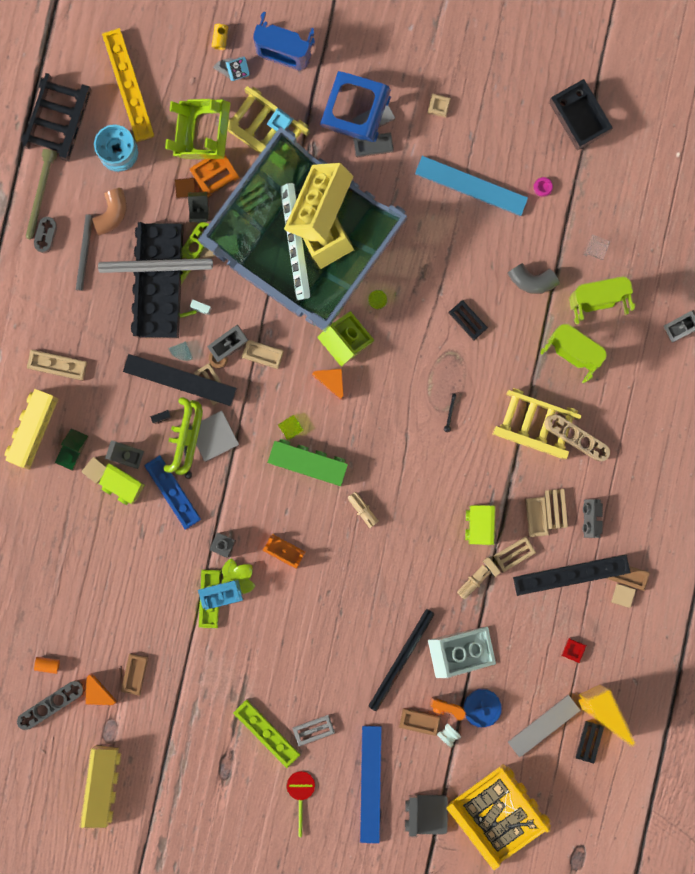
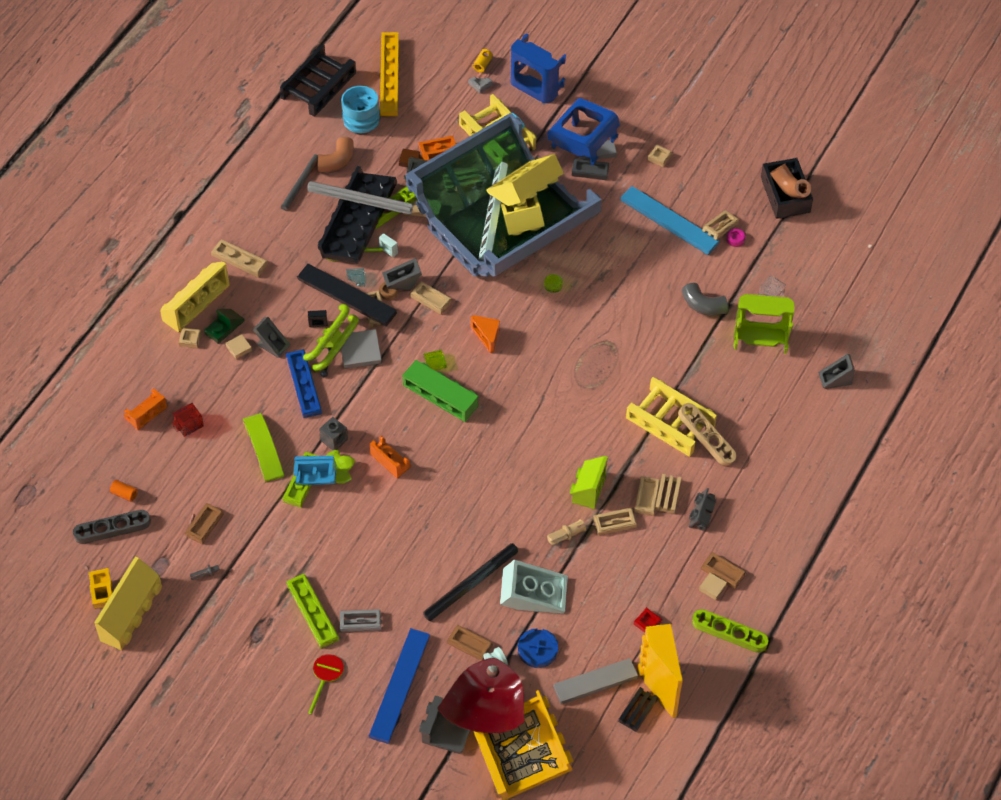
camera: 15 degrees right, 30 degrees down
(32, 570) = (146, 410): none -> orange hinge
(41, 233) = (269, 159): dark grey beam -> none
(43, 474) = (190, 337): none -> tan tile
(48, 158) = (299, 106): olive piece -> none
(70, 779) = (100, 587): none -> yellow brick
(77, 571) = (187, 420): none -> clear red brick
(96, 693) = (160, 527): orange slope -> none
(121, 484) = (259, 357): lime slope -> none
(158, 575) = (263, 447): none -> lime slope
(158, 723) = (209, 570): none -> flat silver piece
(187, 115) = (424, 125): lime piece -> none
(237, 68) = (489, 84): tile -> none
(345, 338) = (511, 302): lime slope -> none
(363, 509) = (479, 443): tan axle -> none
(440, 706) = (501, 628): orange plate -> none
(447, 428) = (583, 400): black hinge -> none
(457, 790) = (477, 709): none -> dark red piece
(462, 325) = (638, 332): black tile -> none
(491, 566) = (588, 522): tan tile -> none
(518, 191) = (723, 227): none -> tan tile
(571, 575) = (666, 552): black tile -> none
(576, 349) = (720, 340): lime piece -> none
(585, 115) = (789, 184): none -> nougat cylinder
(650, 637) = (731, 628): none -> lime beam

